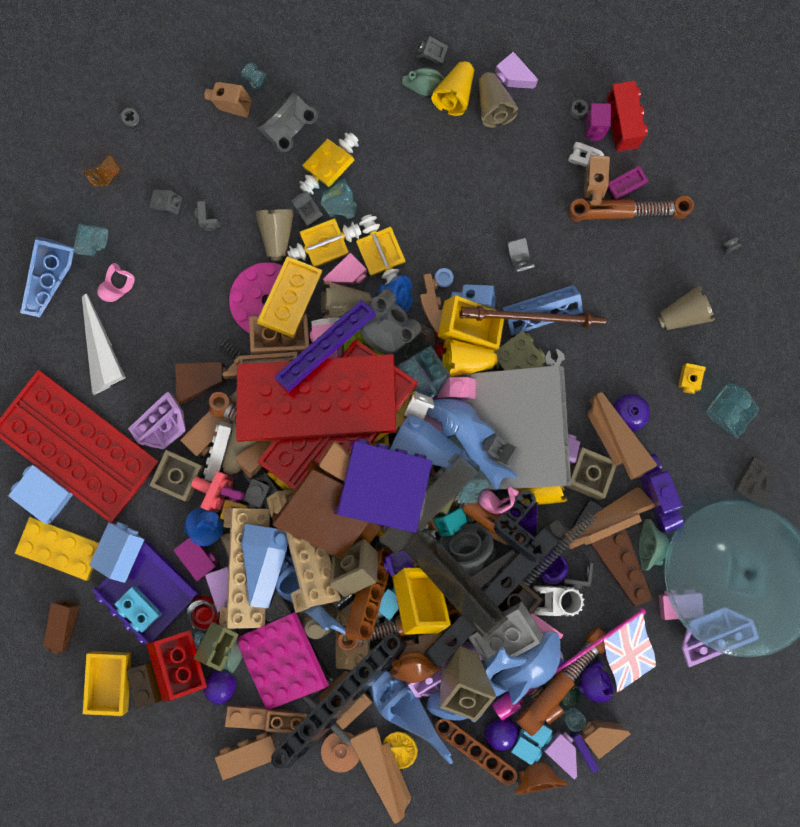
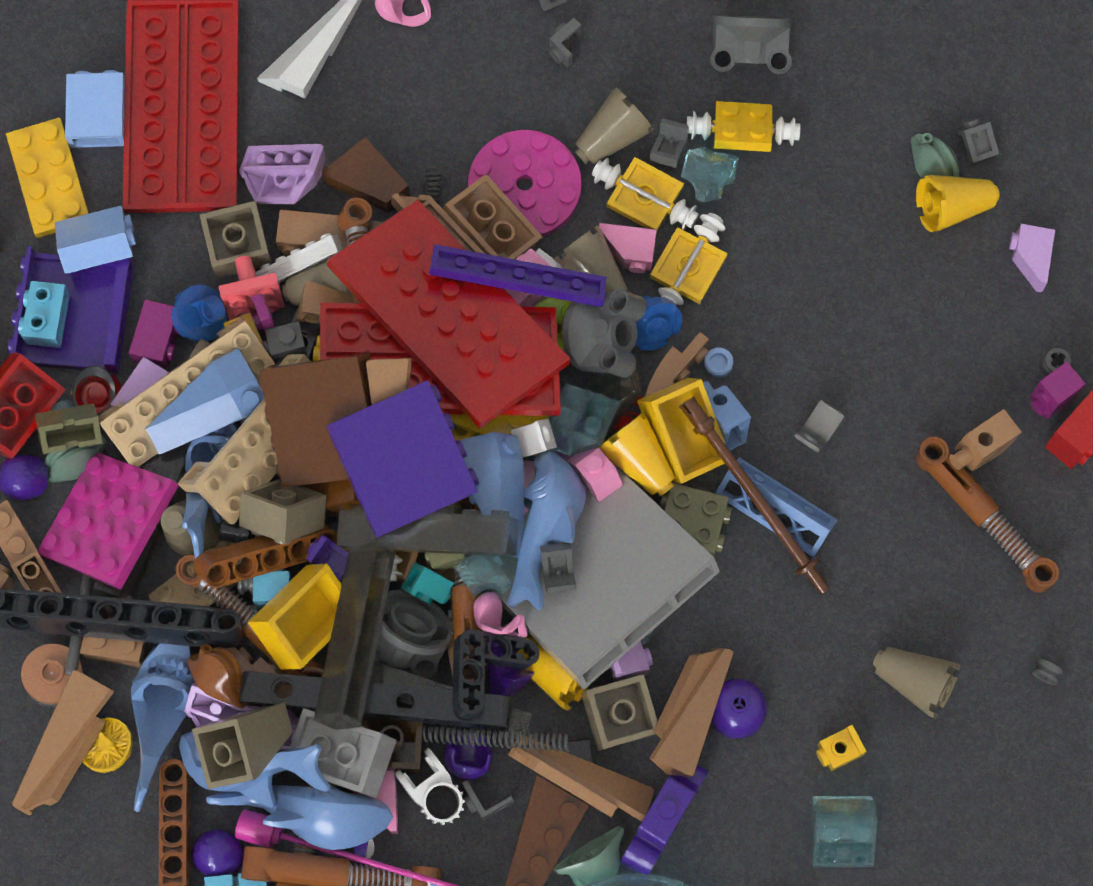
camera: 50 degrees right, 10 degrees down
(289, 297) = (546, 201): yellow plate -> none
(495, 101) = (977, 257): dark tan cone -> none
(560, 357) = (715, 583): light grey bar -> none
(575, 158) = (1010, 399): white plate -> none
(627, 183) = (1015, 487): magenta plate -> none

